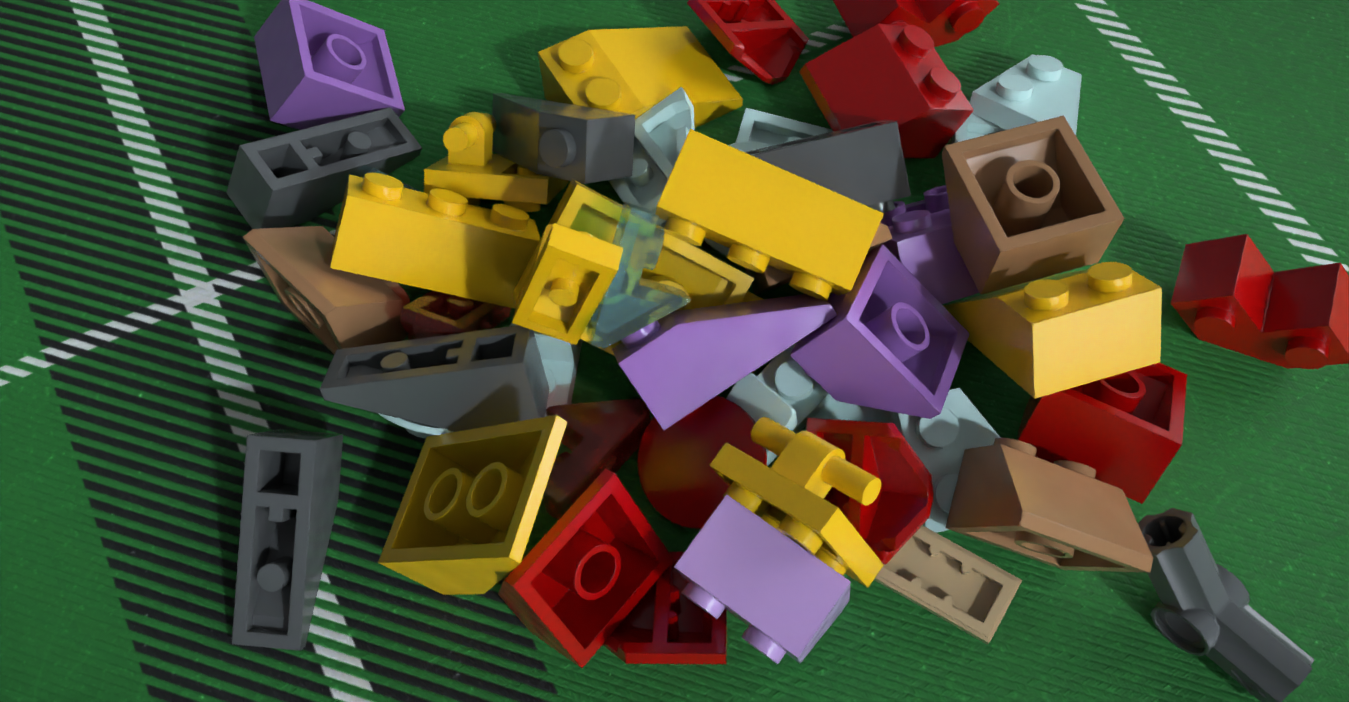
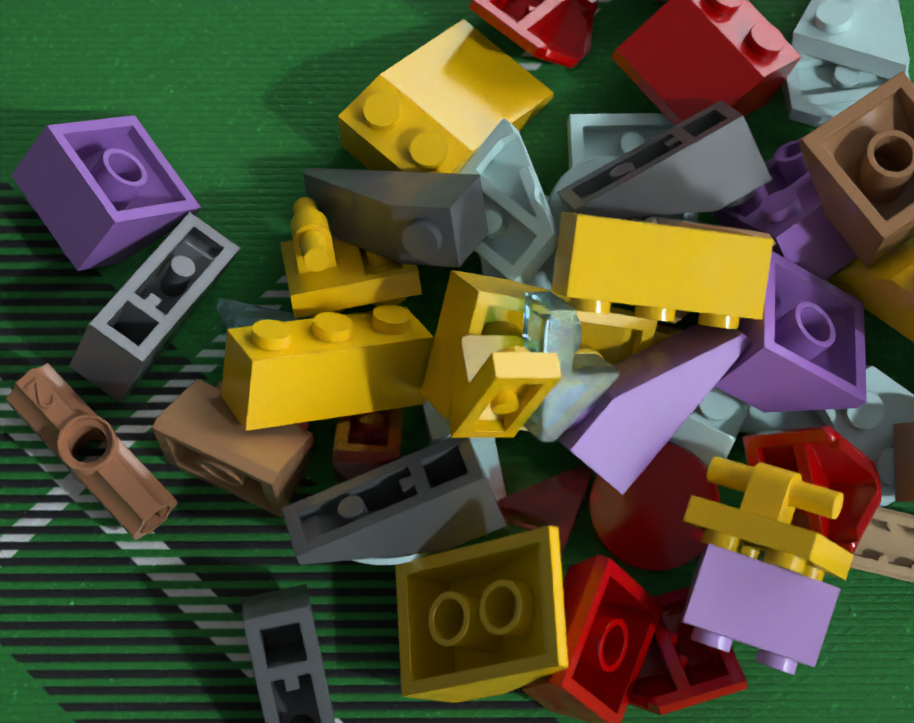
camera: 20 degrees left, 10 degrees up
(211, 268) = (114, 479): none -> nougat piece

